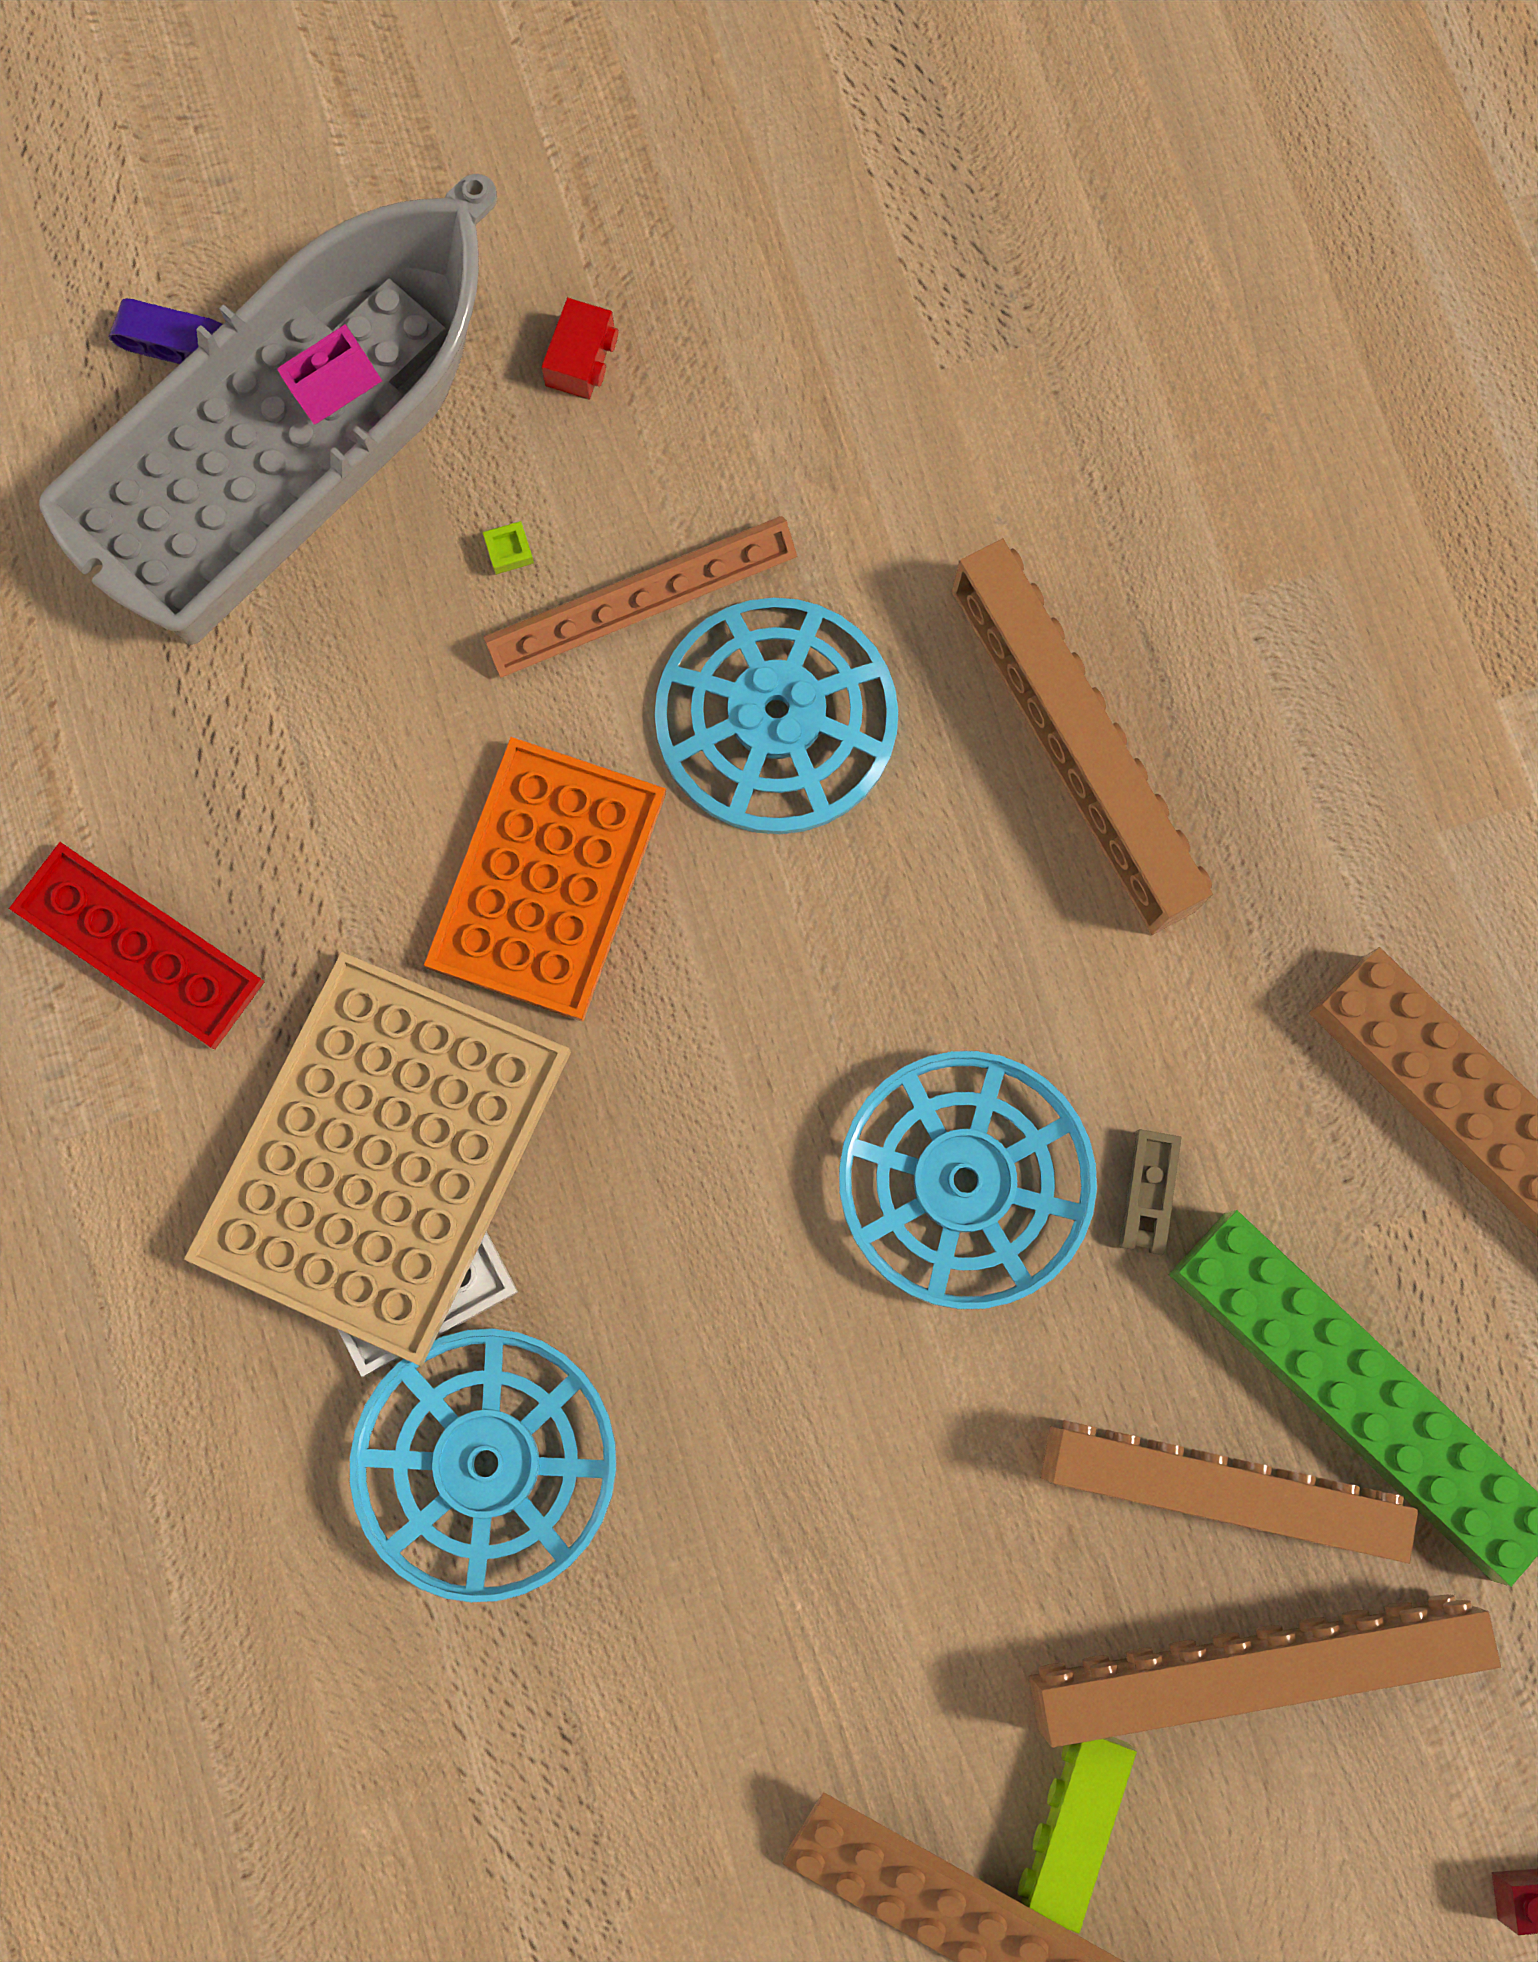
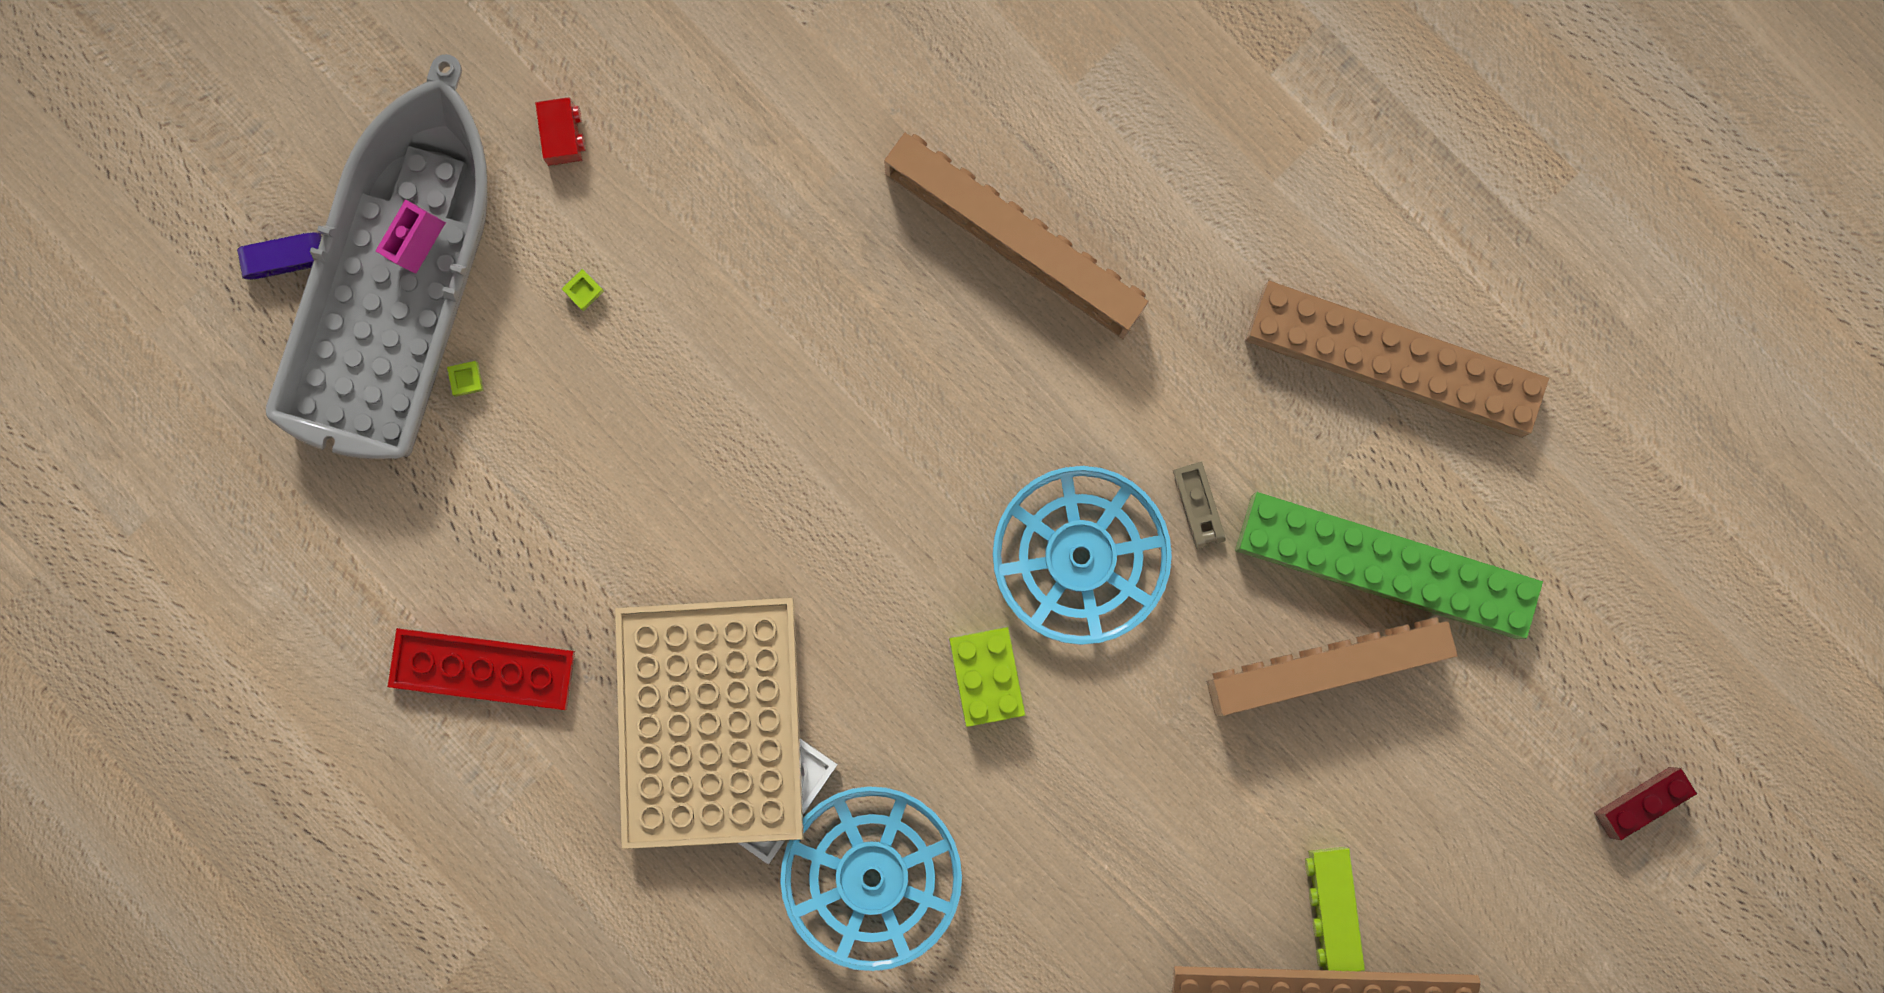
camera: 25 degrees left, 5 degrees up
(309, 583) = (465, 378): none -> lime plate
(546, 879) = (720, 495): orange plate -> none
(640, 596) = (686, 280): nougat plate -> none
(766, 1275) = (987, 676): none -> lime brick
(771, 736) = (817, 332): medium azure dish -> none
(1262, 1670) = (1401, 763): medium nougat brick -> none

